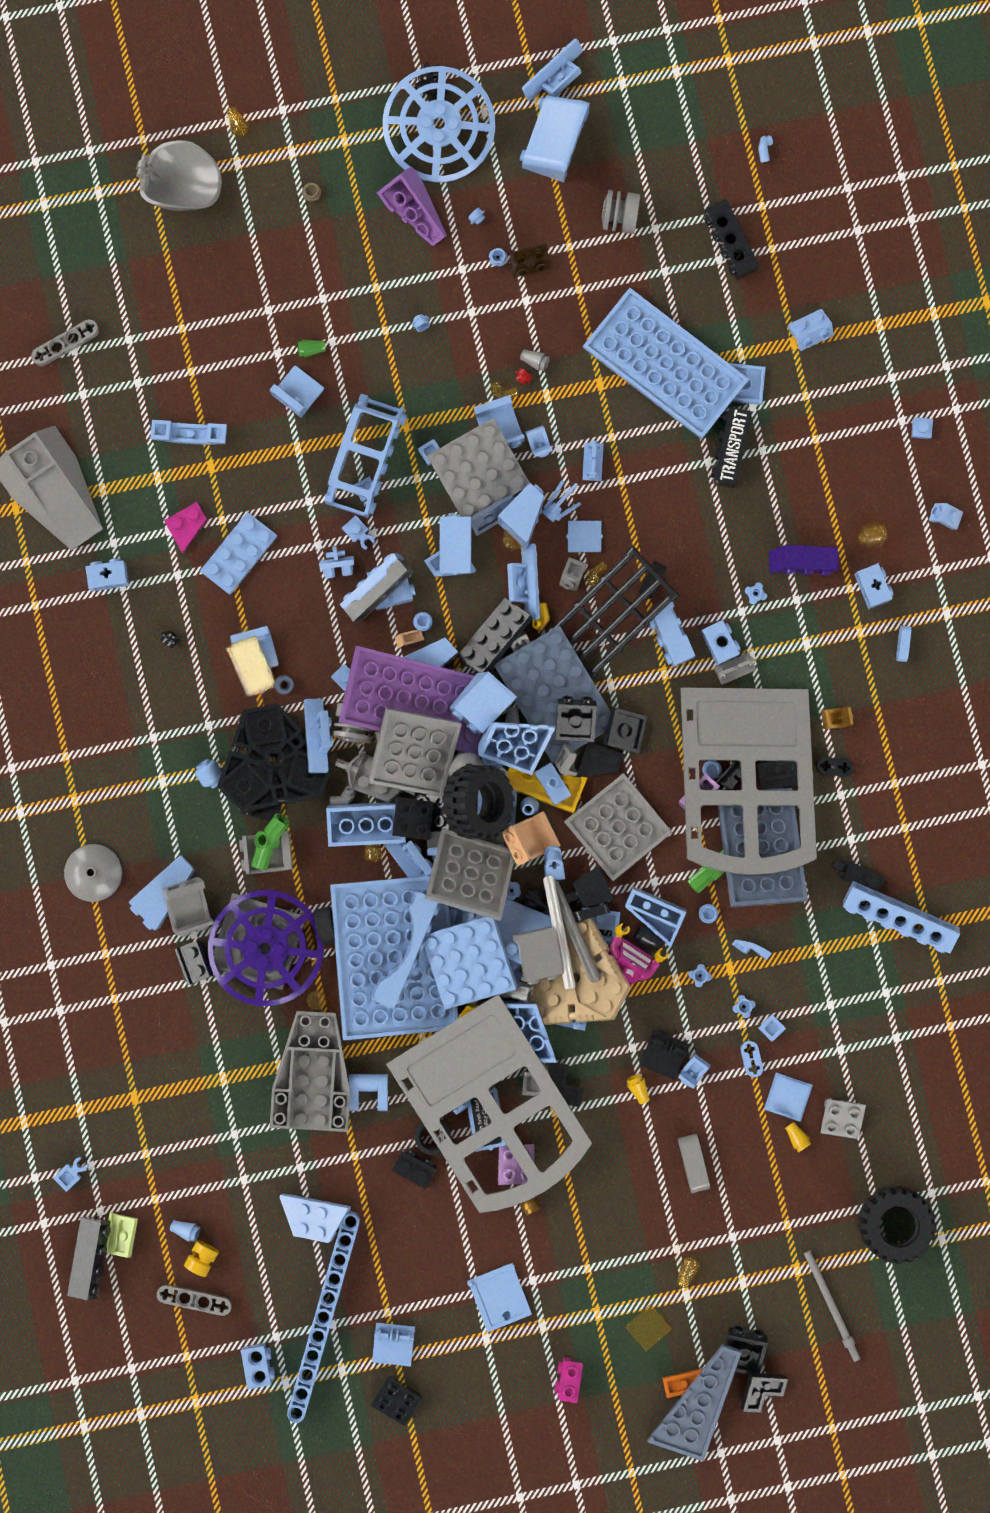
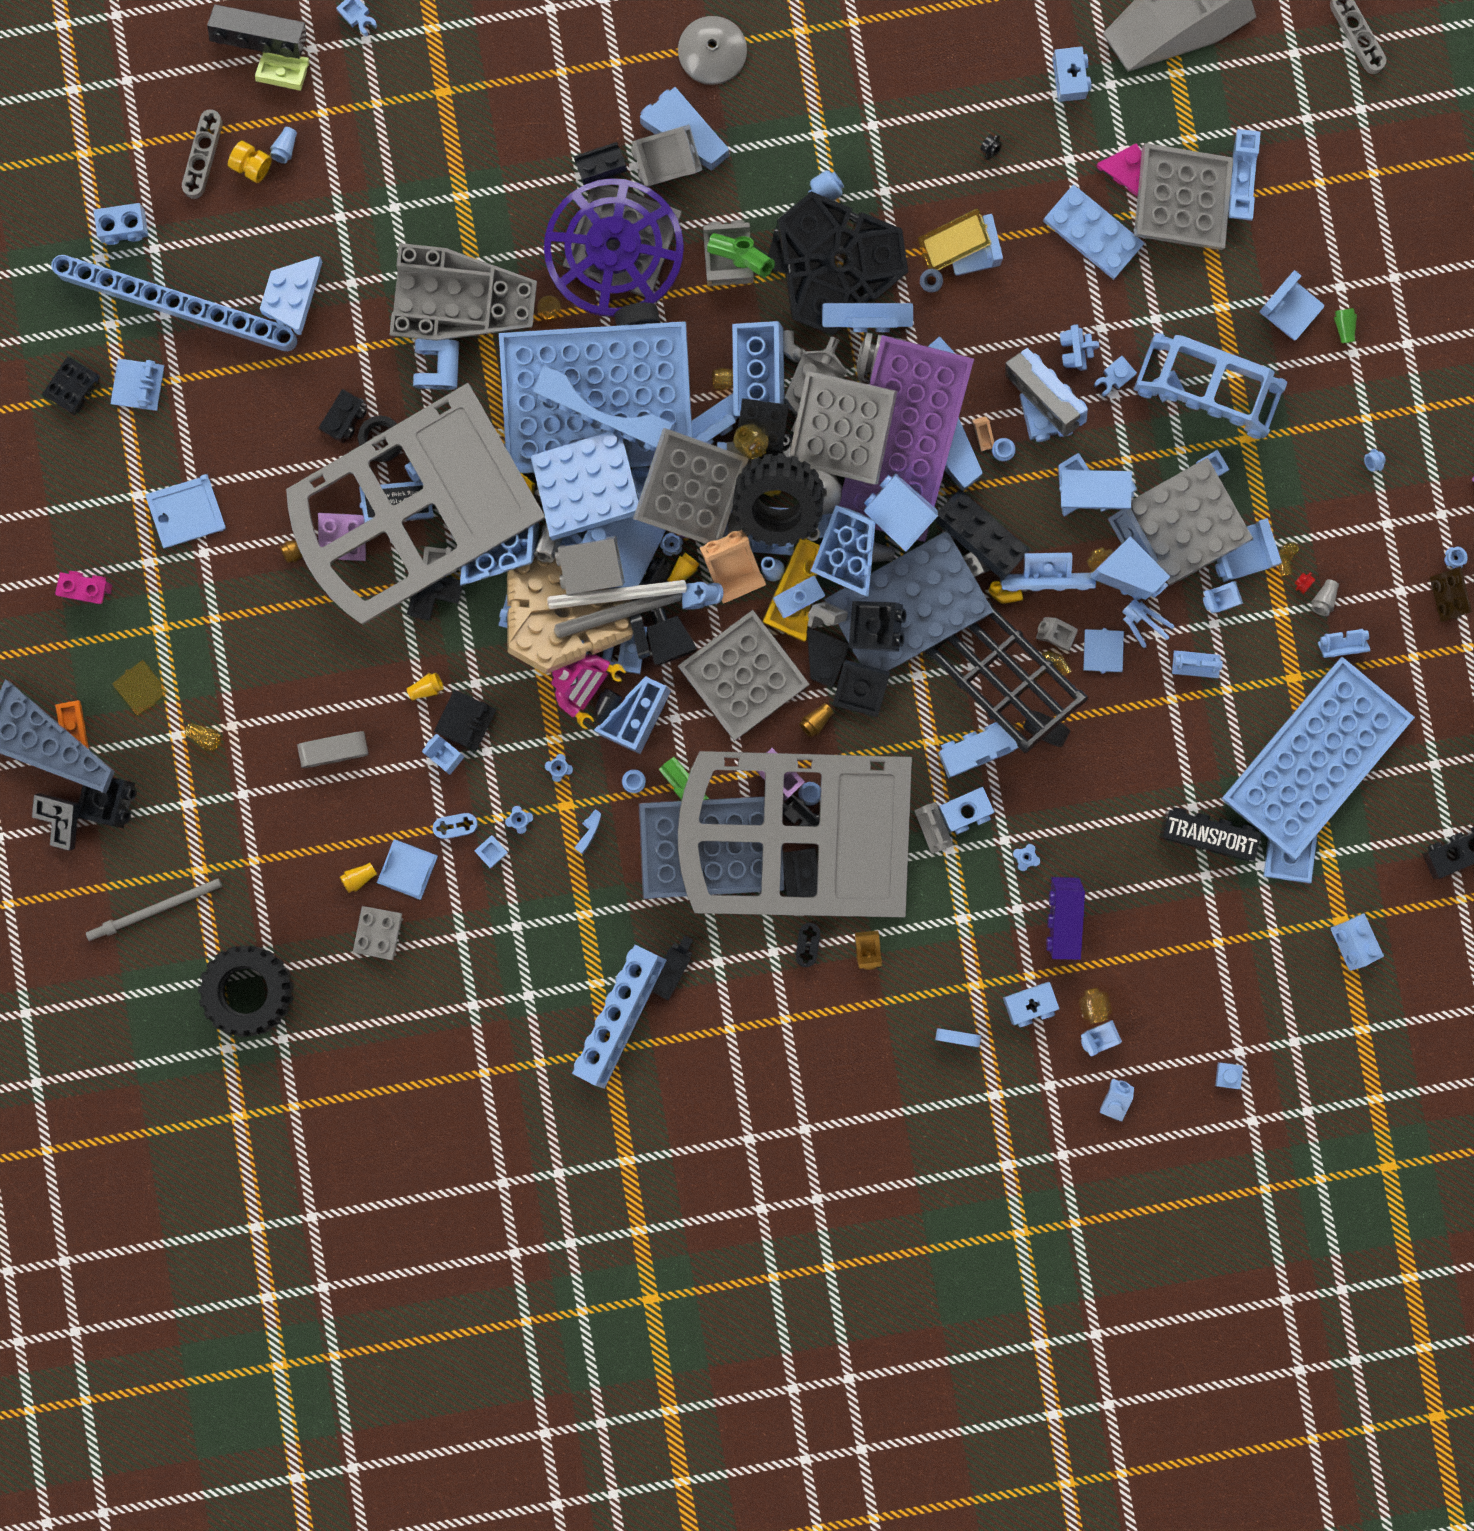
camera: 90 degrees right, 0 degrees up
(208, 481) = (1183, 196): none -> light grey plate
(429, 826) = (750, 441): none -> clear yellow head
(532, 879) = (684, 568): none -> yellow cone
(573, 347) = (1335, 645): none -> light blue hinge
(653, 767) = (816, 720): none -> pearl gold cone
(898, 530) = (1100, 1038): none -> light blue bracket

